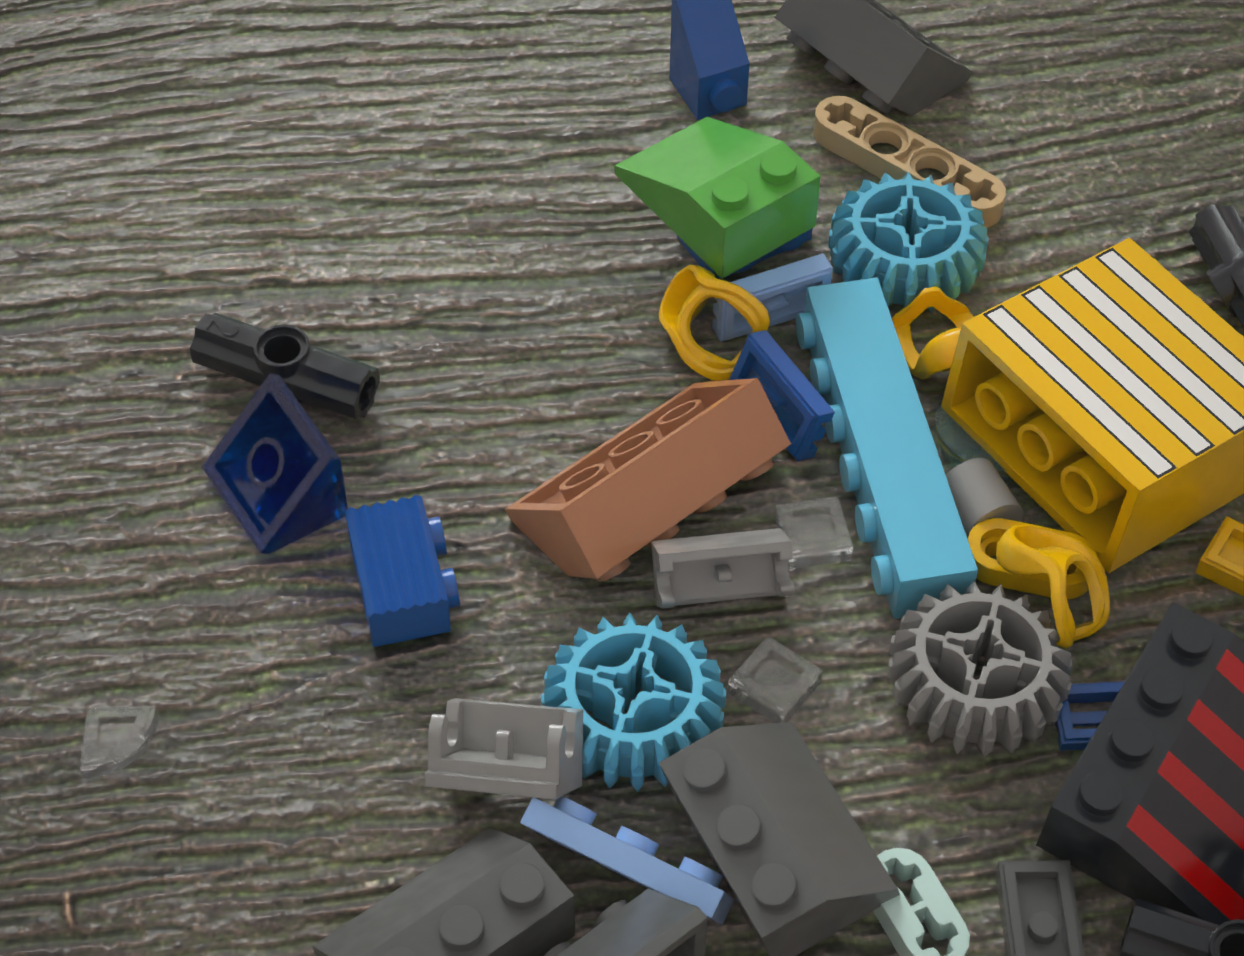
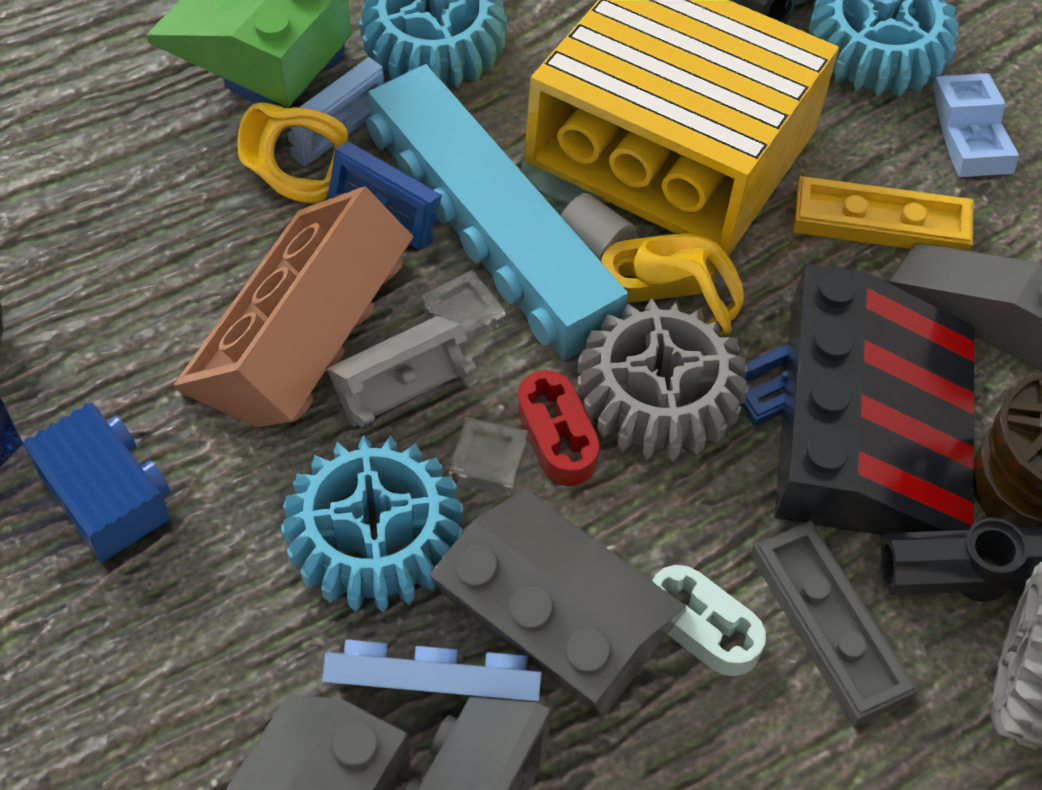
camera: 25 degrees left, 5 degrees up
(506, 749) = (277, 616): light grey hinge -> none
(868, 679) = (569, 422): none -> red beam
(939, 352) = (512, 106): yellow piece -> none

